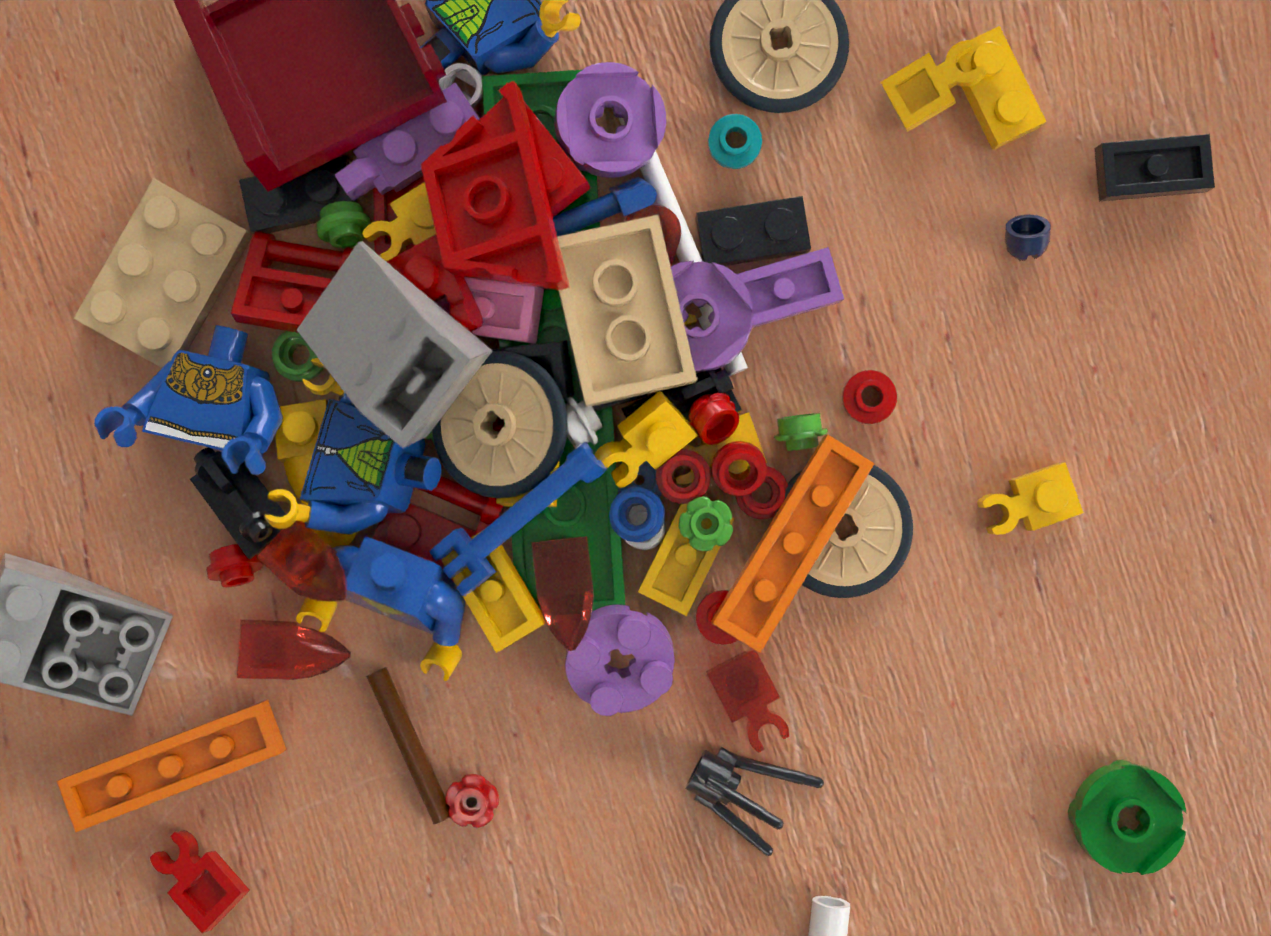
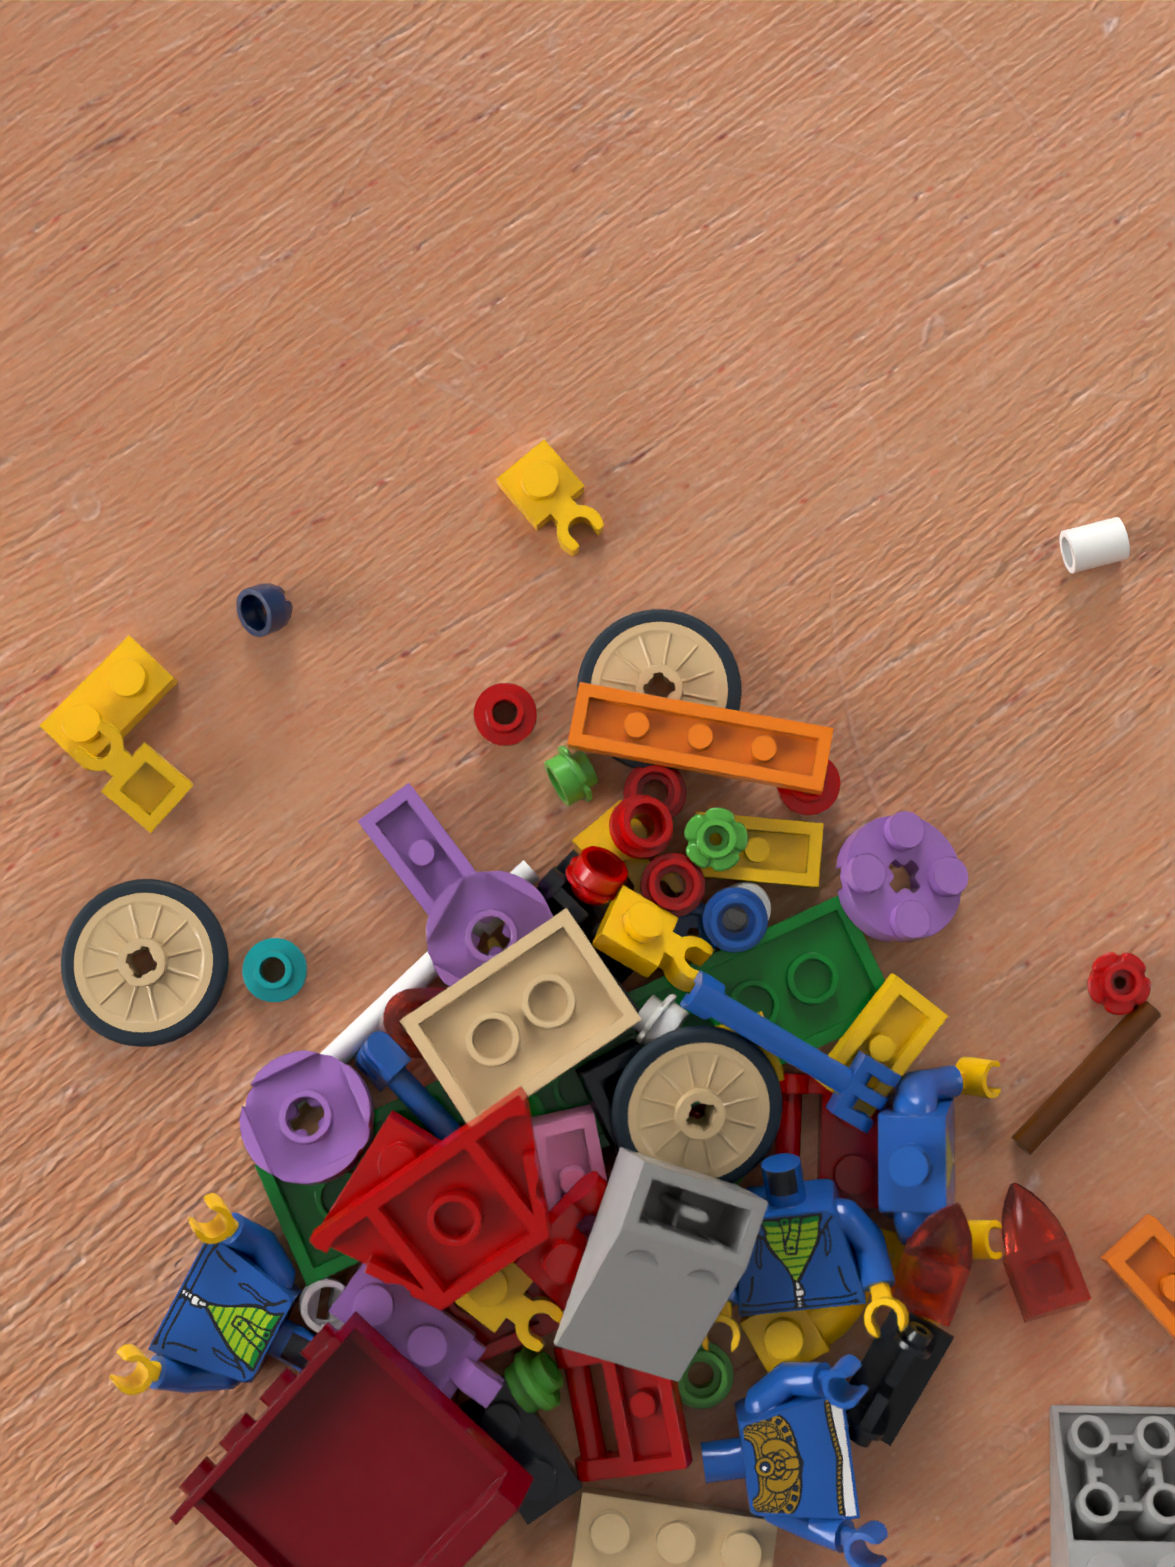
camera: 110 degrees left, 5 degrees down
(232, 566) = (969, 1355): red plate -> none
(564, 587) = (845, 968): clear red plate -> none
(717, 783) = (990, 722): black plant -> none
(746, 691) = (878, 727): clear red plate -> none
(753, 232) = (369, 911): black plate -> none
(1154, 167) = (138, 500): black plate -> none
(1160, 818) = (836, 242): green plate -> none

